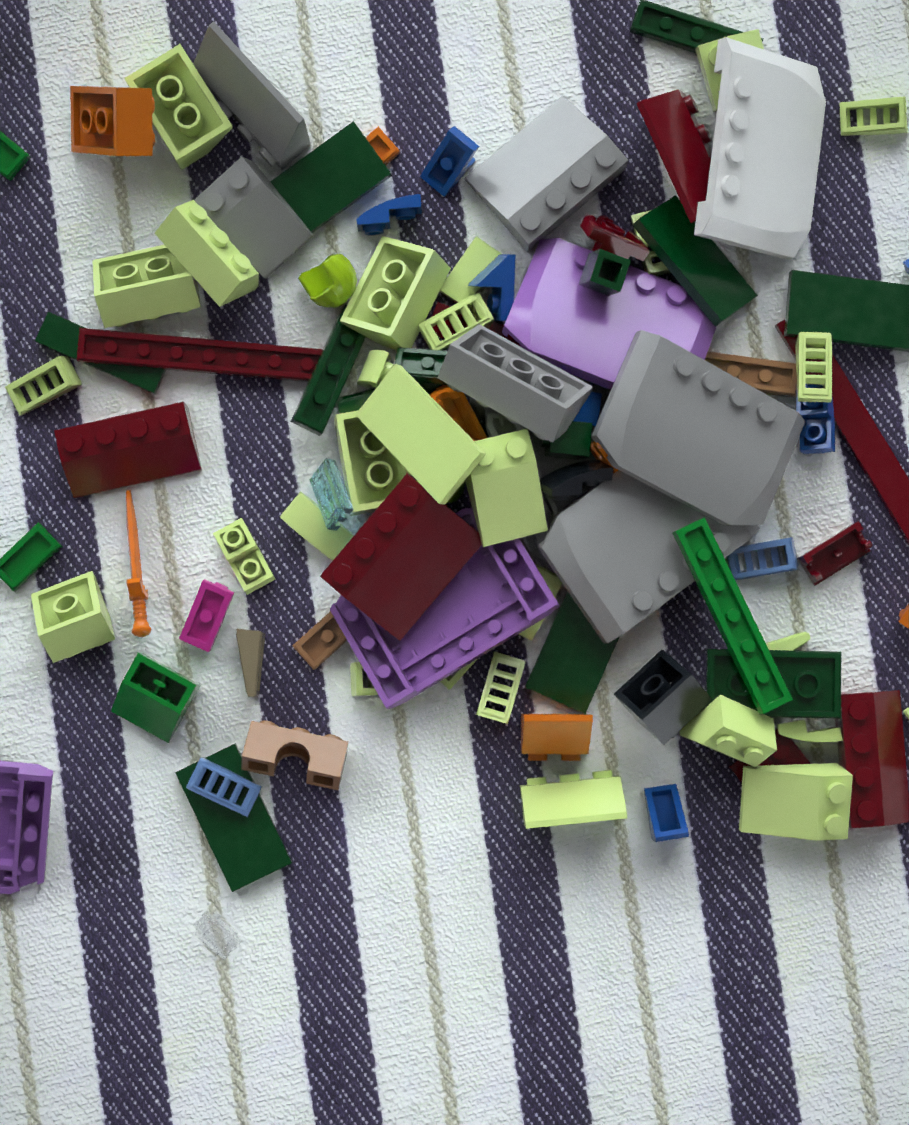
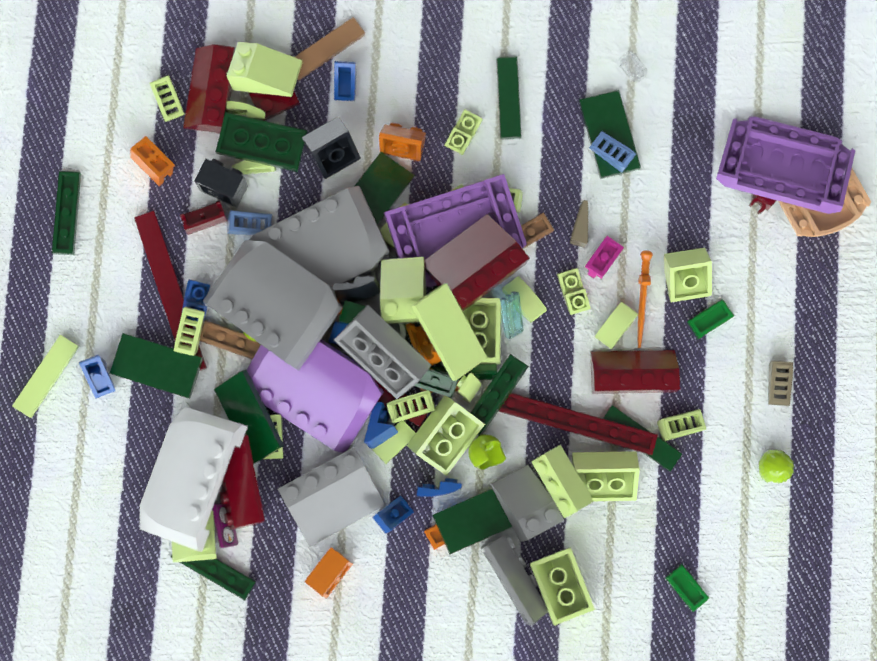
camera: 175 degrees left, 5 degrees down
(112, 120) = (607, 582): orange slope -> none
(154, 697) = (644, 215): green slope -> none
(168, 515) = (616, 325): none -> yellowish green slope
(269, 744) = (547, 157): arch -> none
(403, 844) = (508, 98): none -> dark green tile
(463, 773) = (463, 132): none -> yellowish green slope
(491, 713) = (423, 174): yellowish green slope -> none
(526, 61) = (328, 572): none -> orange hinge
(572, 800) = (400, 98): yellowish green slope -> none
(604, 272) = (310, 413): dark green brick -> none
(612, 238) = (299, 438): dark red plate -> none
(690, 82) = (226, 537): none -> slope
(703, 868) = (329, 46): none -> medium nougat tile
(732, 616) = (278, 184): green plate -> none
(733, 731) = (293, 115): yellowish green slope -> none
(820, 607) = (221, 182): none -> black brick
(886, 104) = (92, 486): yellowish green slope -> none

